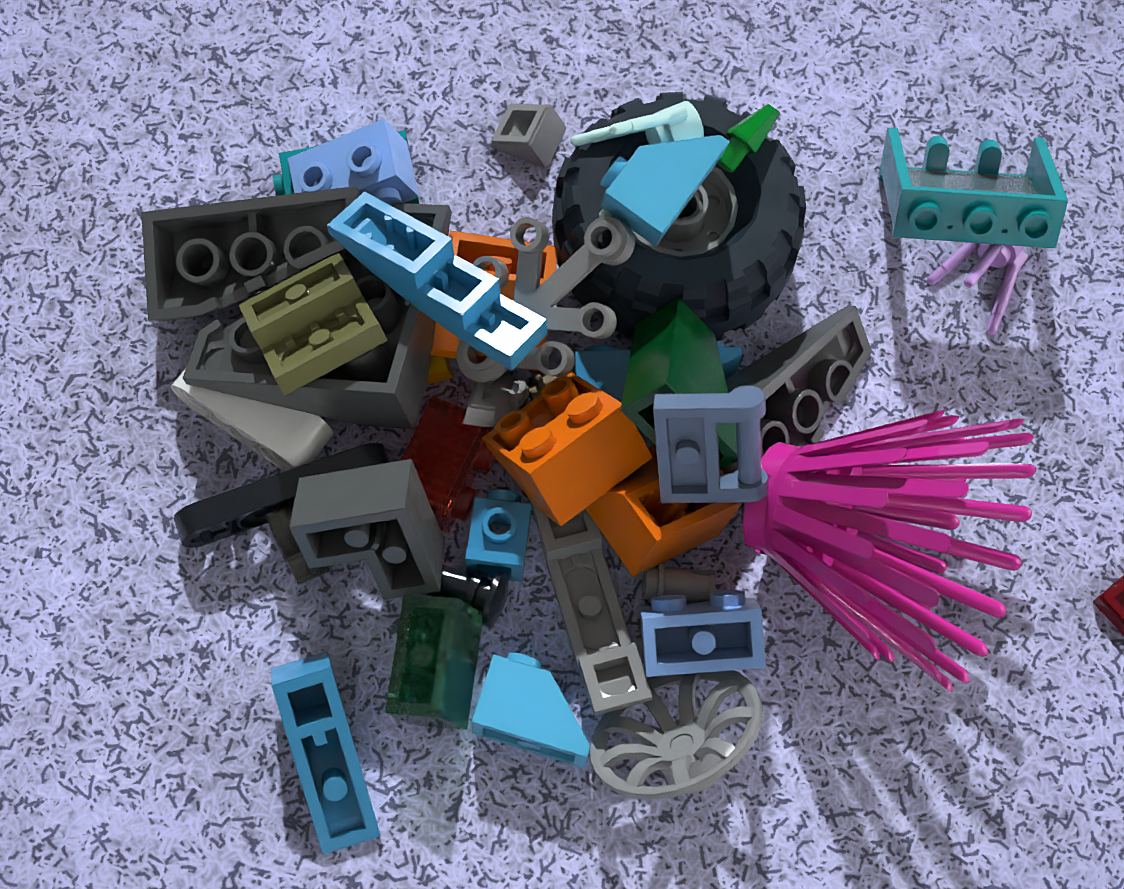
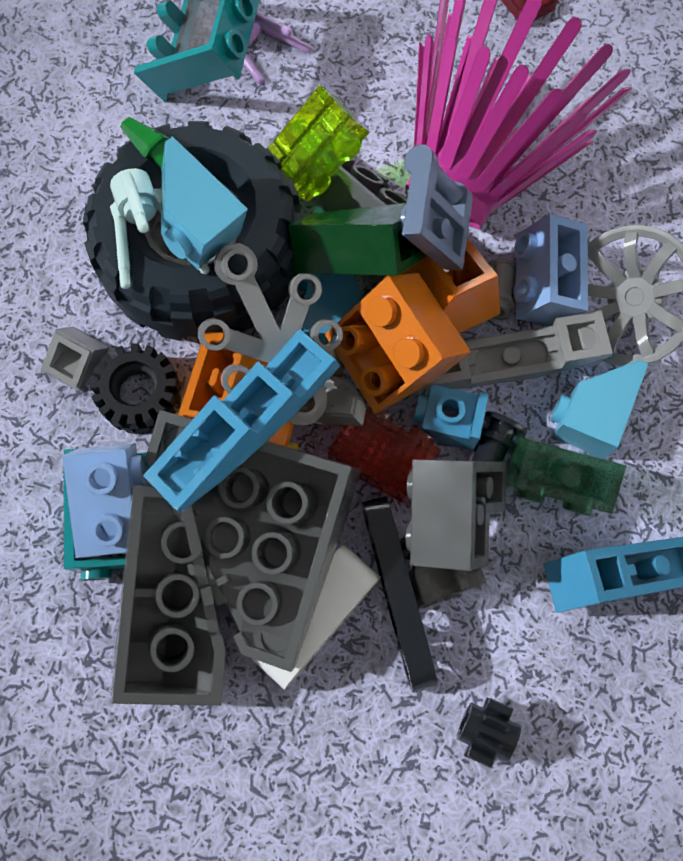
camera: 80 degrees left, 5 degrees up
(133, 599) = (489, 732): none -> black gear
(312, 323) = (263, 540): olive slope -> none
(492, 171) = (120, 368): none -> black tyre
(811, 328) = (318, 142): none -> clear neon green brick

